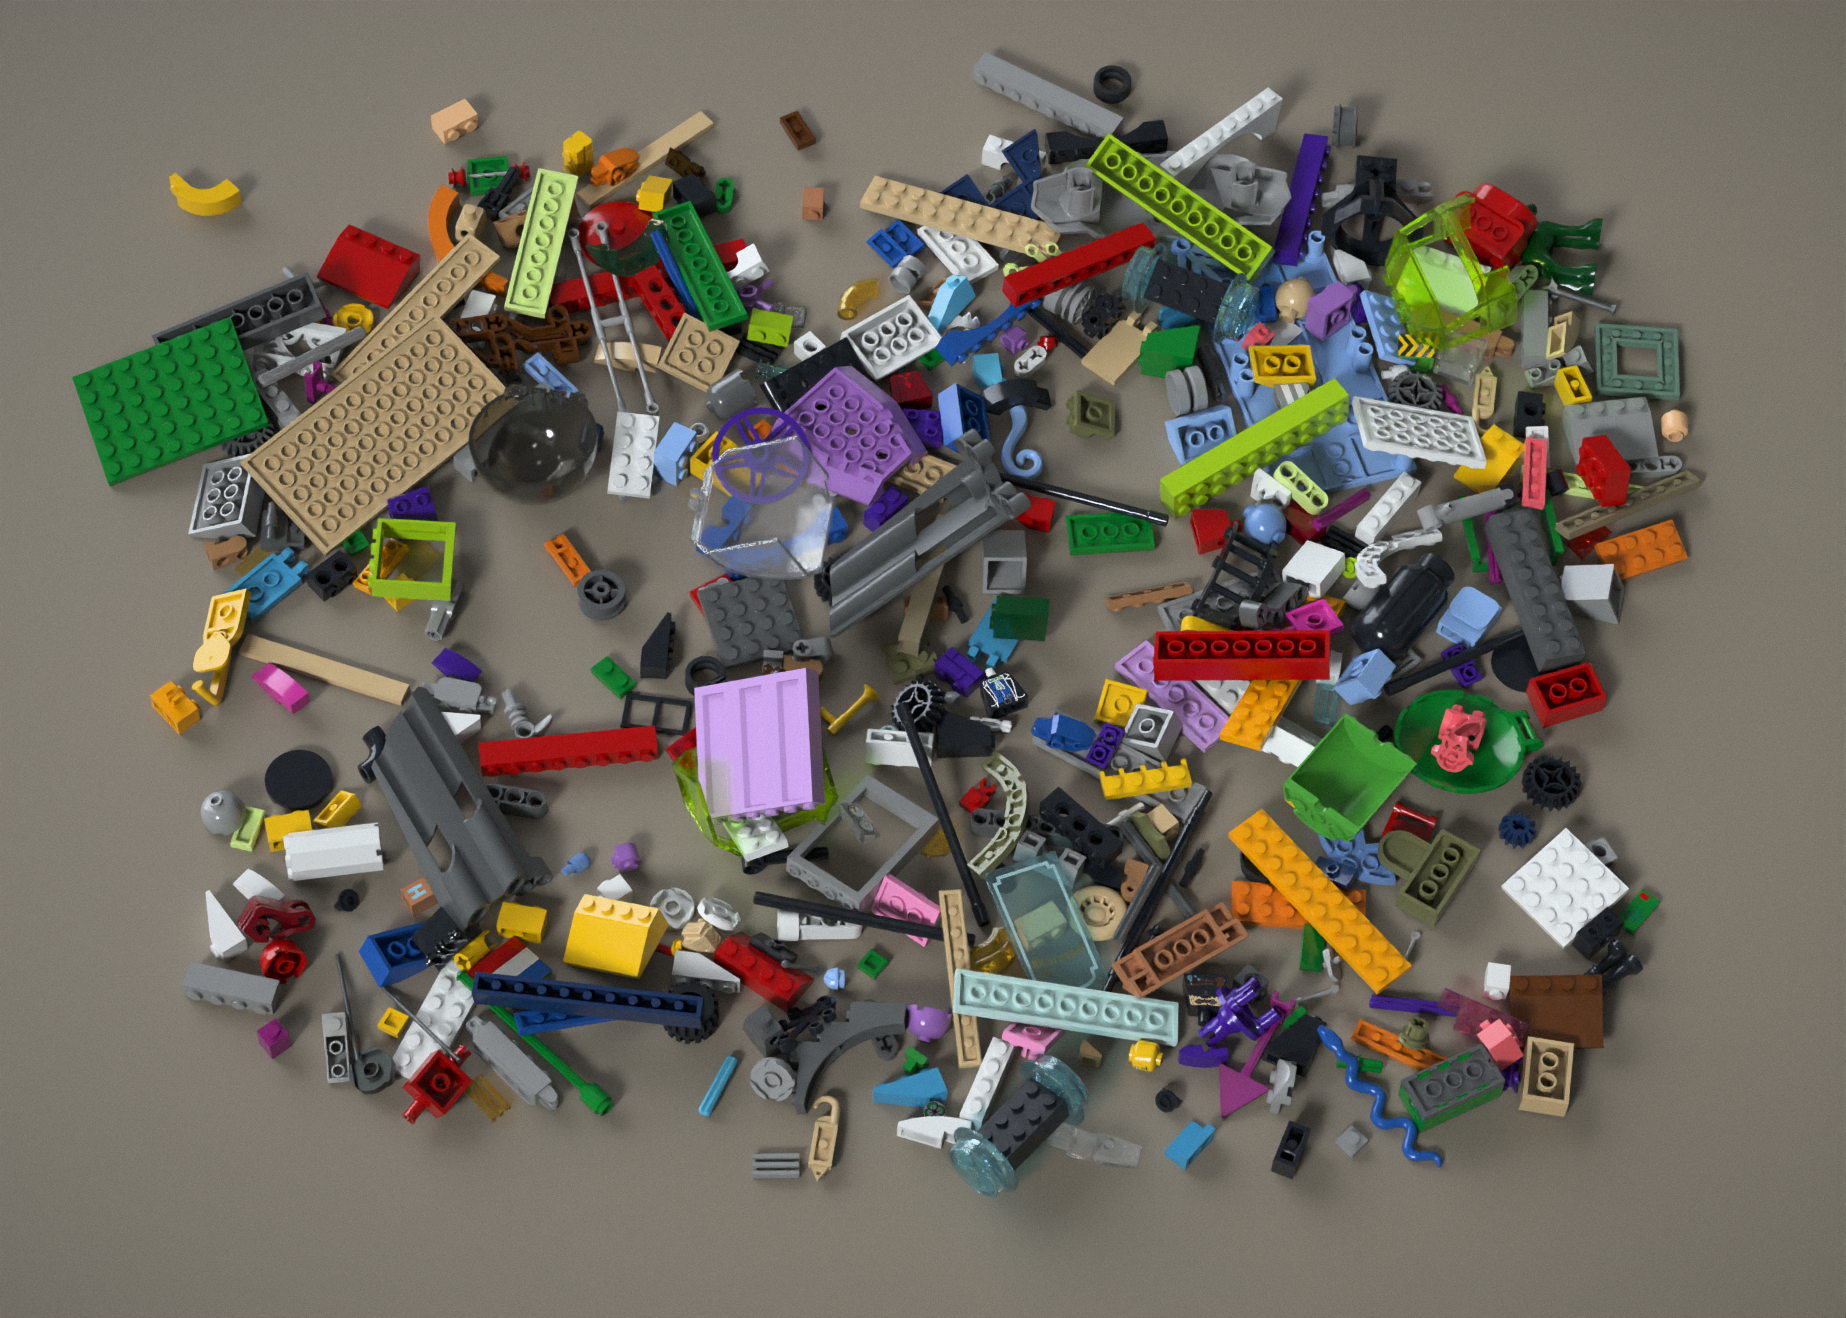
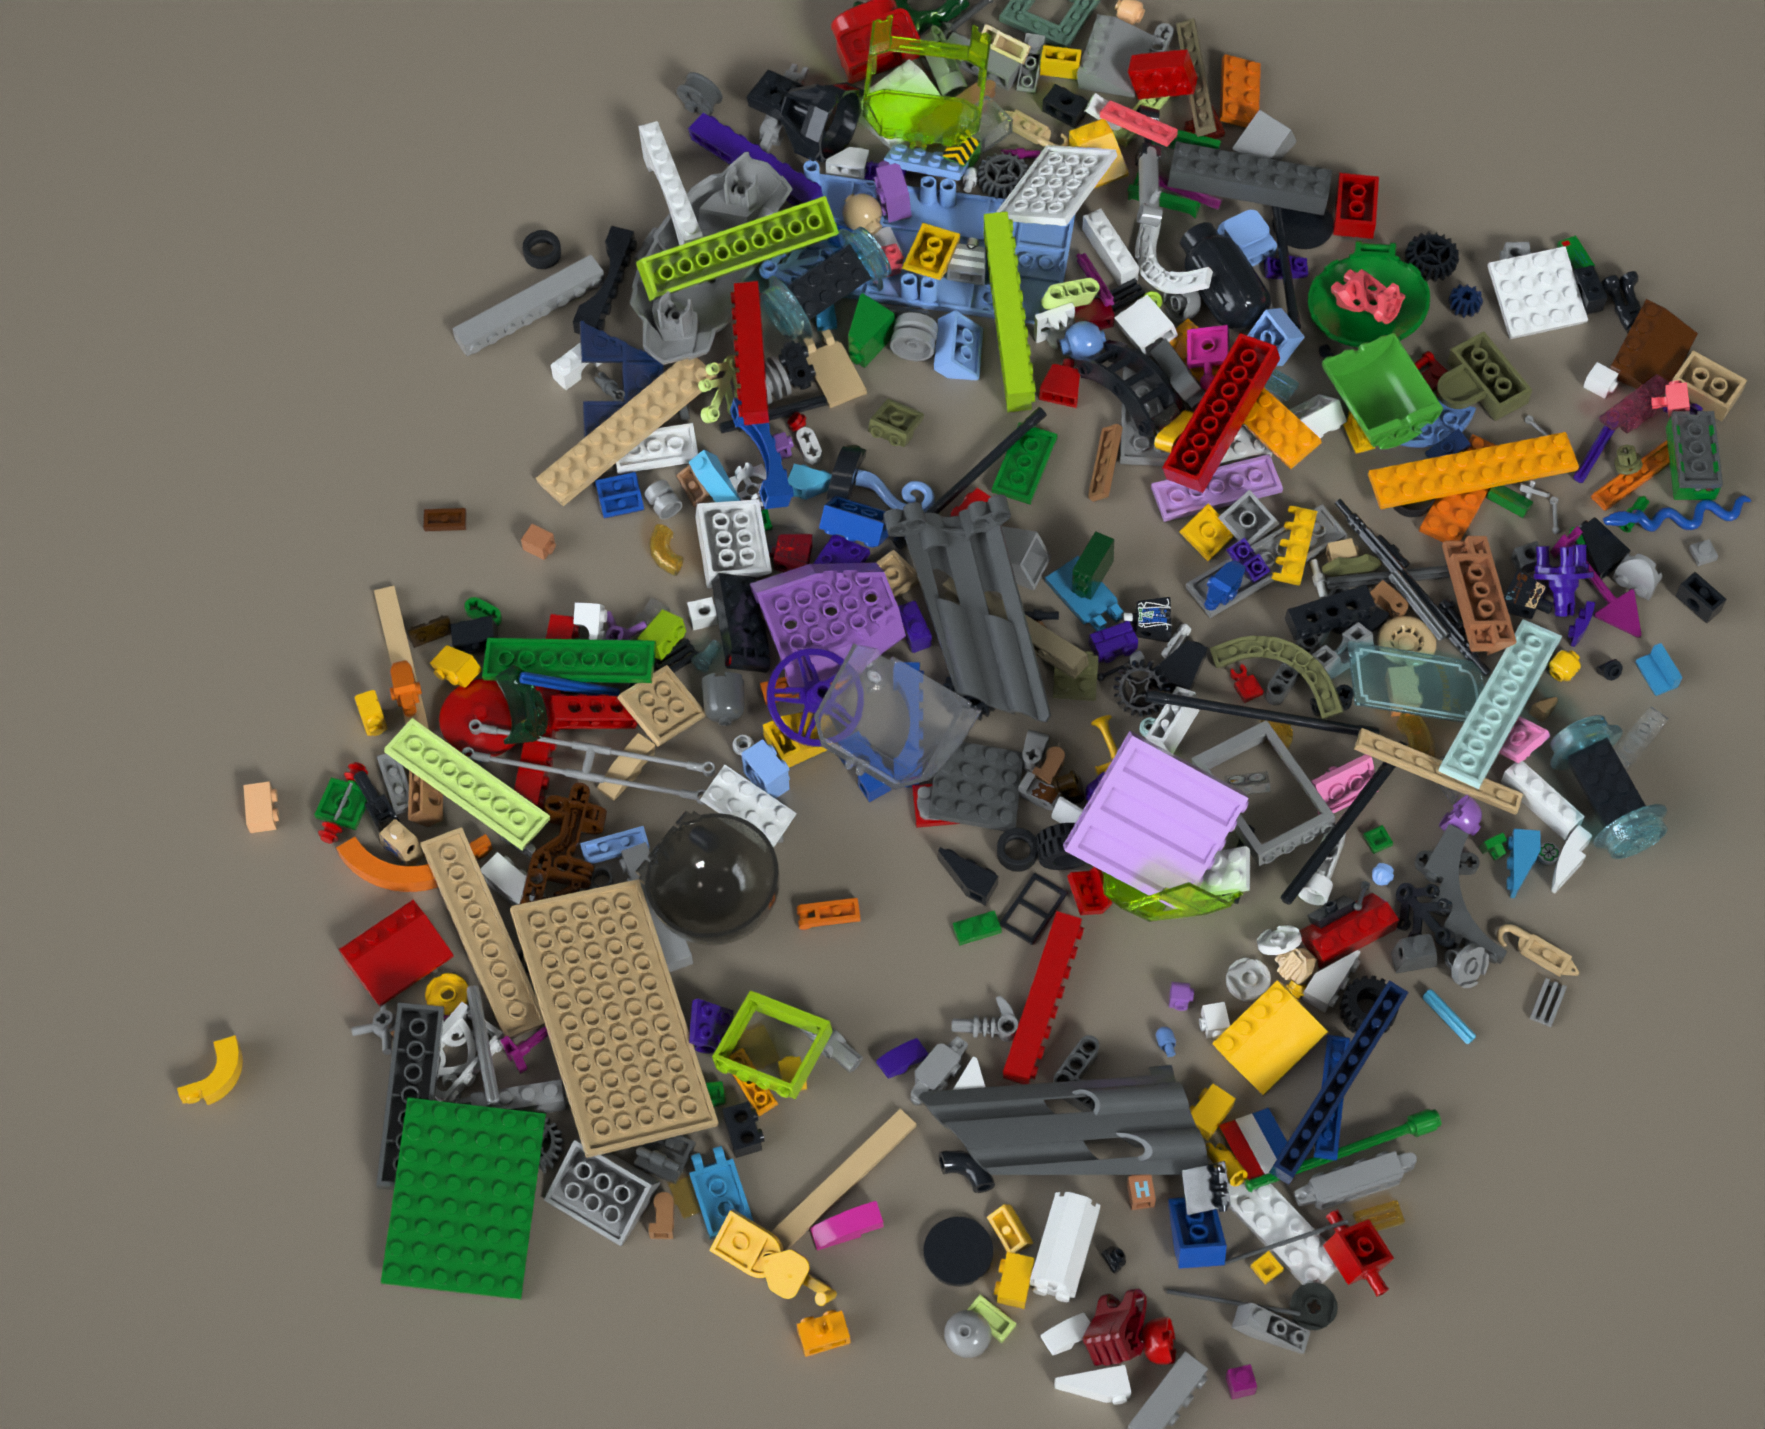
camera: 60 degrees left, 5 degrees up
(601, 594) = (886, 899): dark grey wheel -> none

